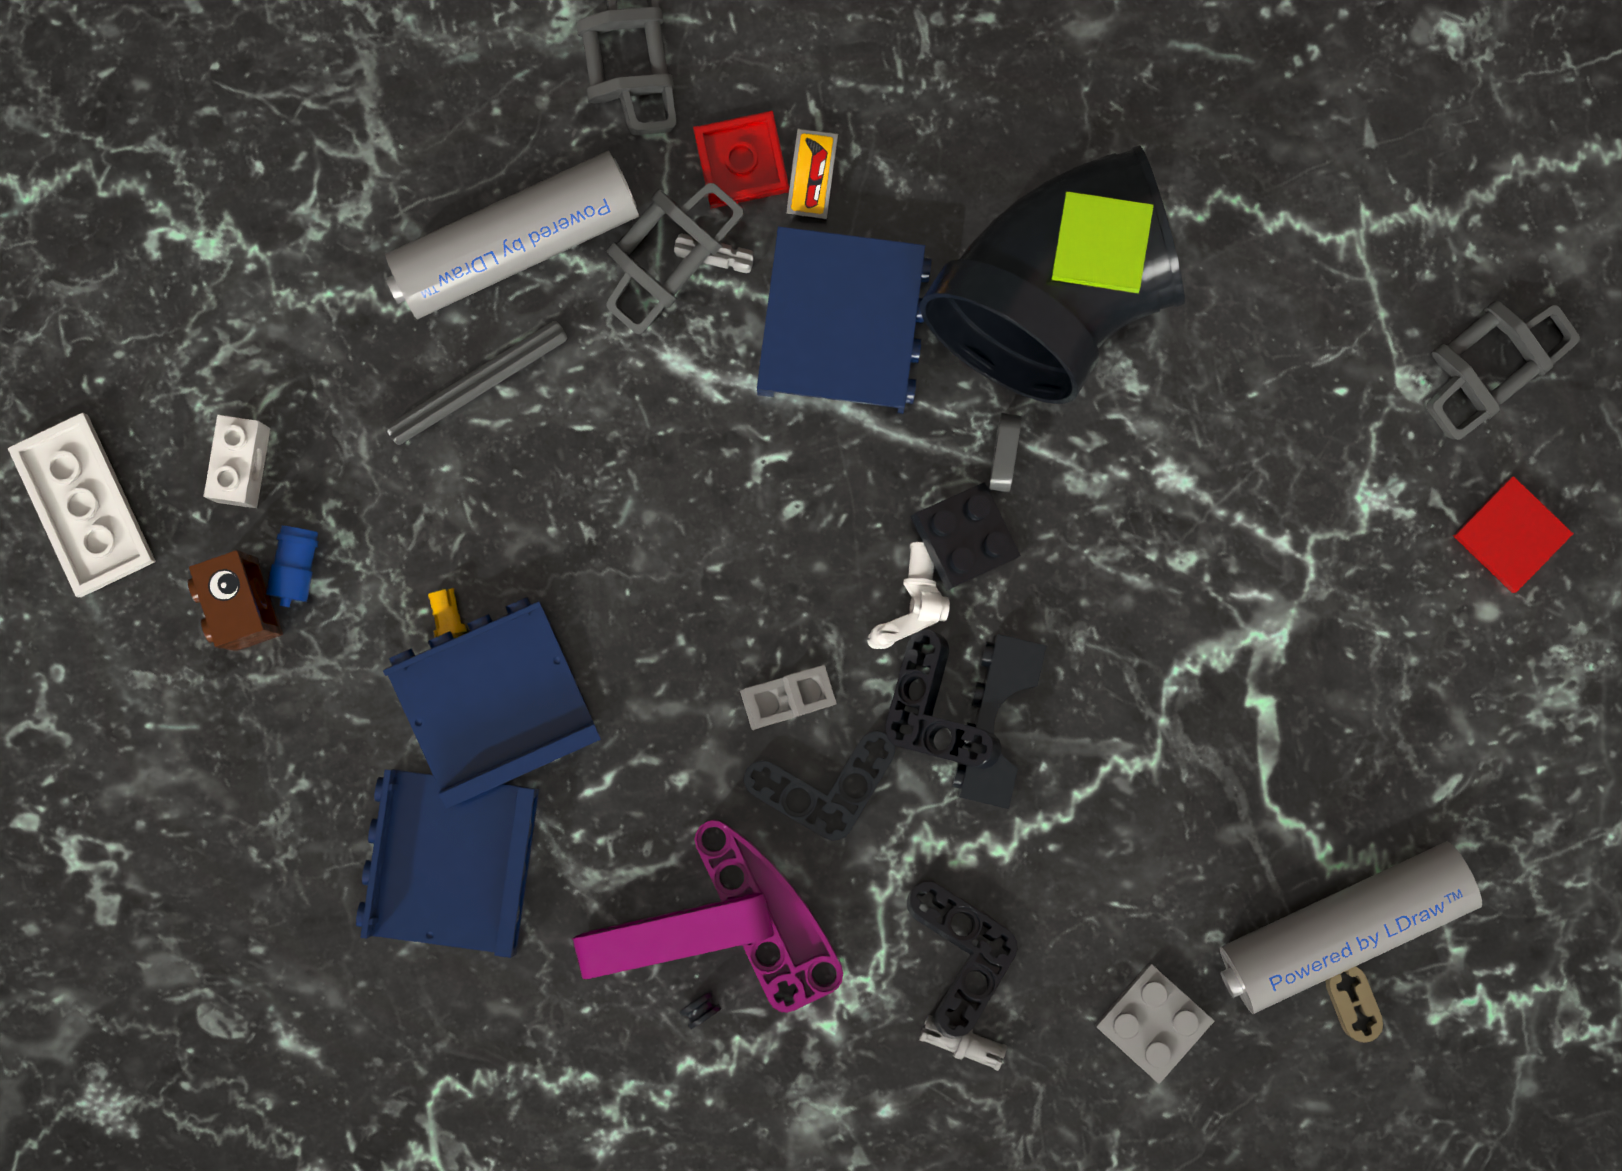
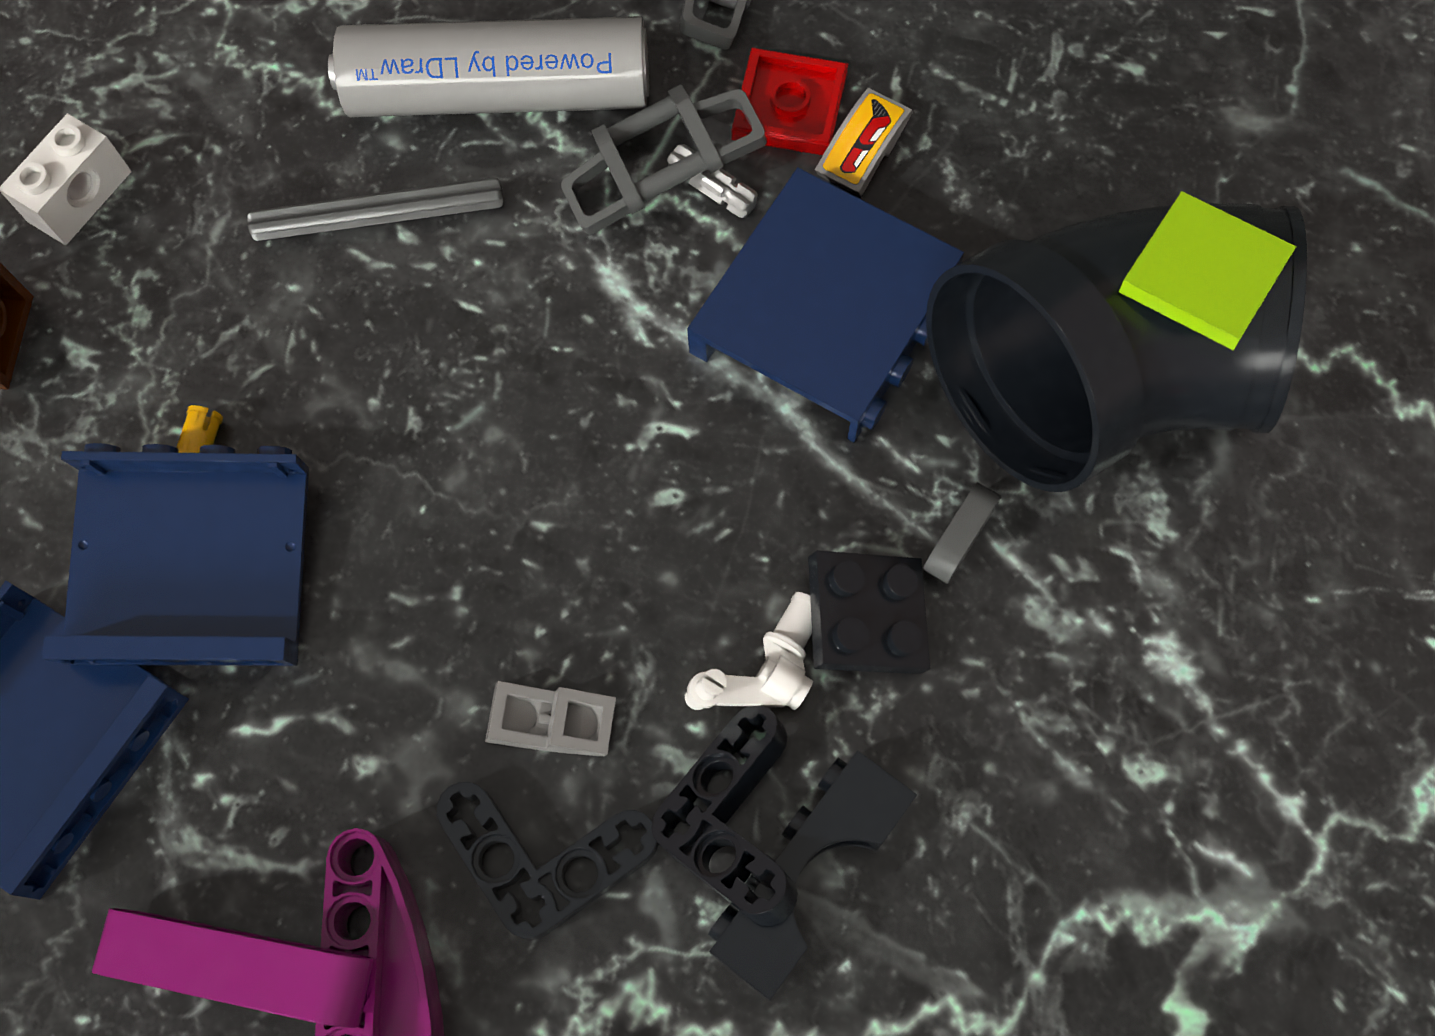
camera: 25 degrees right, 15 degrees down
(292, 565) = (57, 312): blue piece -> none

